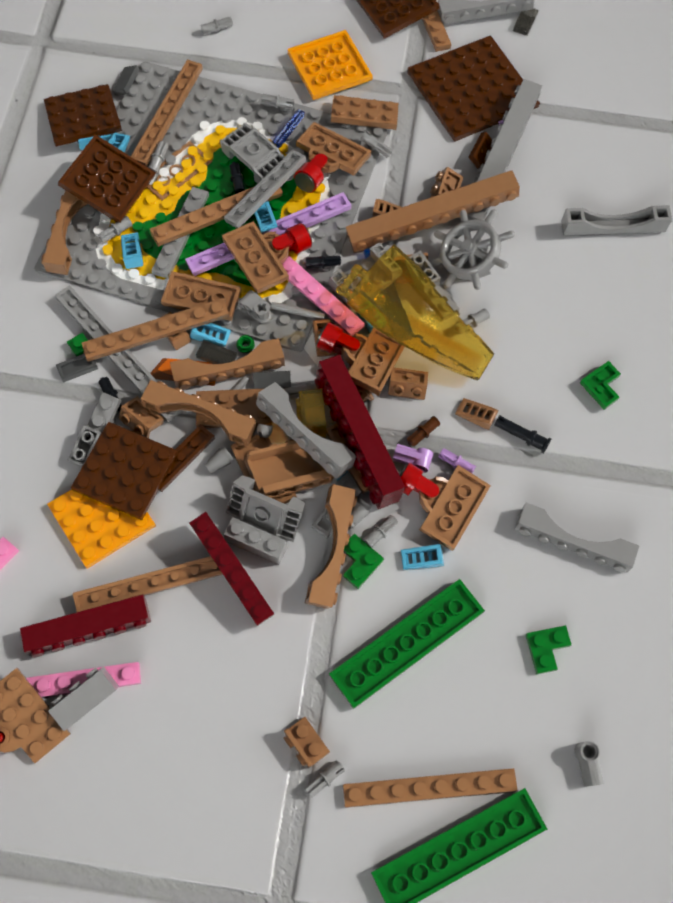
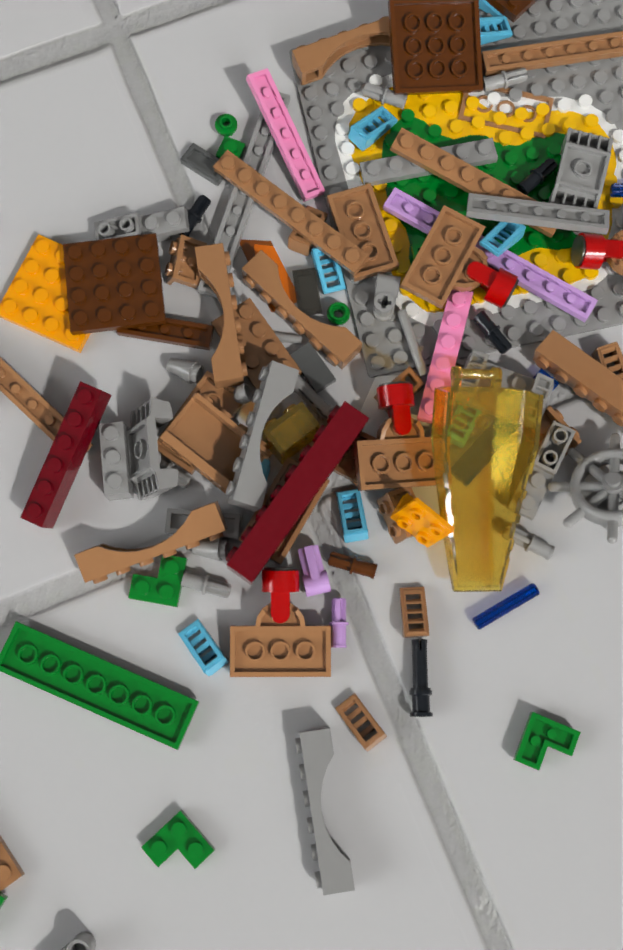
camera: 60 degrees right, 10 degrees up
(62, 340) = (227, 130): none -> green plate
(97, 302) = (285, 134): none -> bright pink plate
(396, 422) = (349, 534): none -> medium azure slope
(423, 367) = (420, 521): none -> light orange bracket
(504, 358) = (505, 606): none -> clear blue axle
(531, 492) = (374, 740): none -> medium nougat slope

